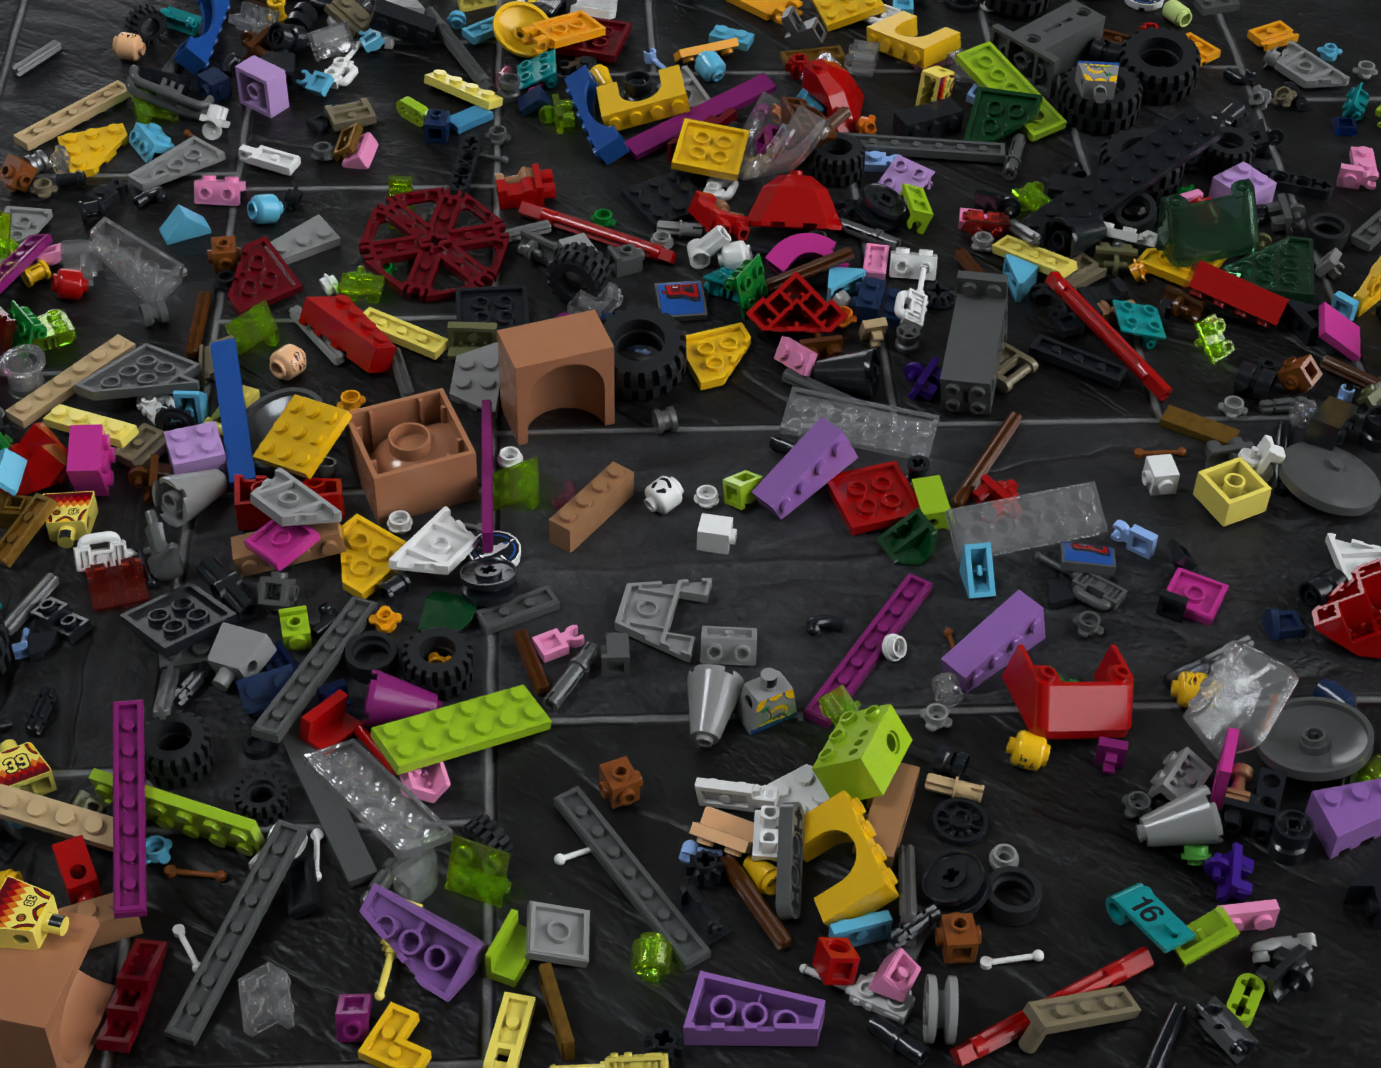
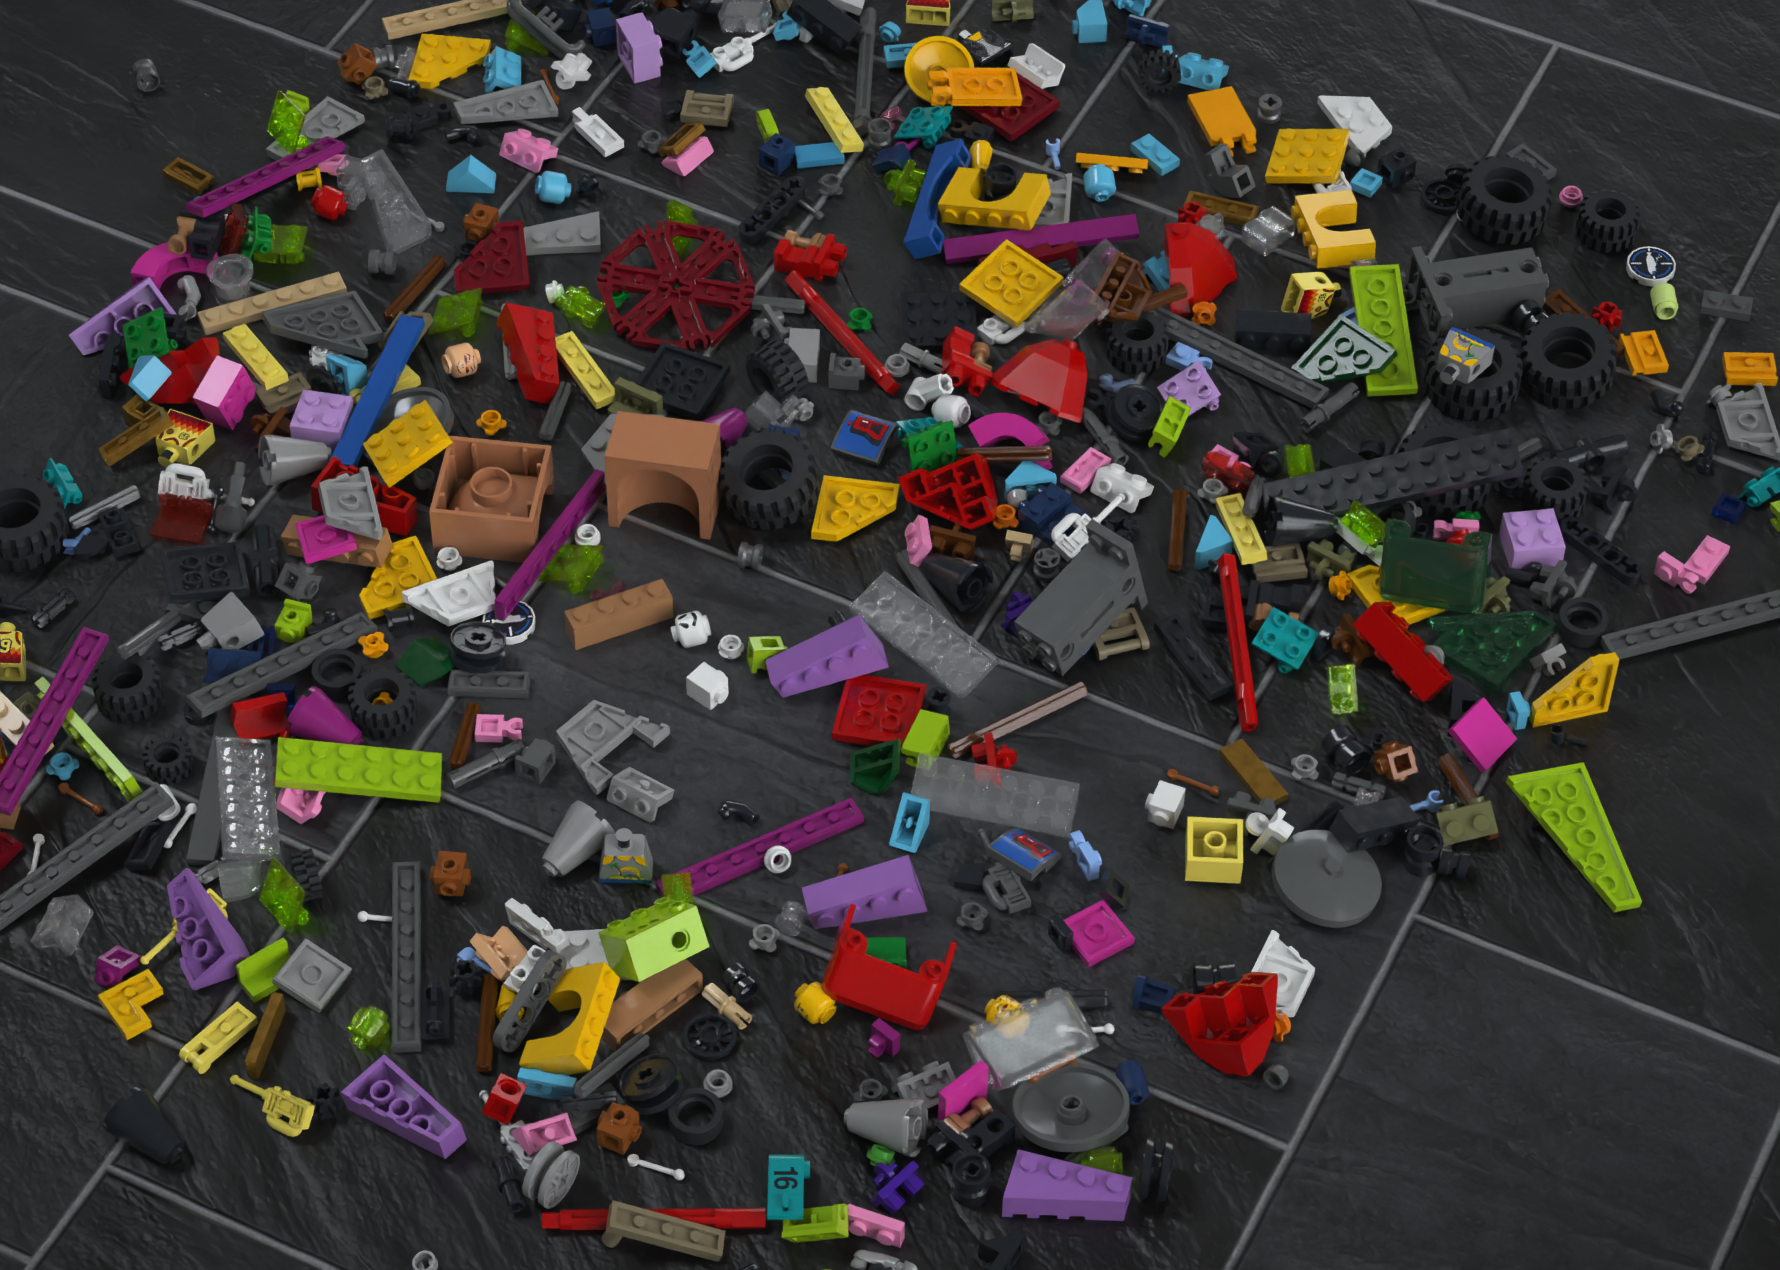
camera: 30 degrees right, 5 degrees up
(853, 193) = (1107, 383): none -> sand blue arm
(1127, 217) = (1364, 524): none -> clear neon green hips

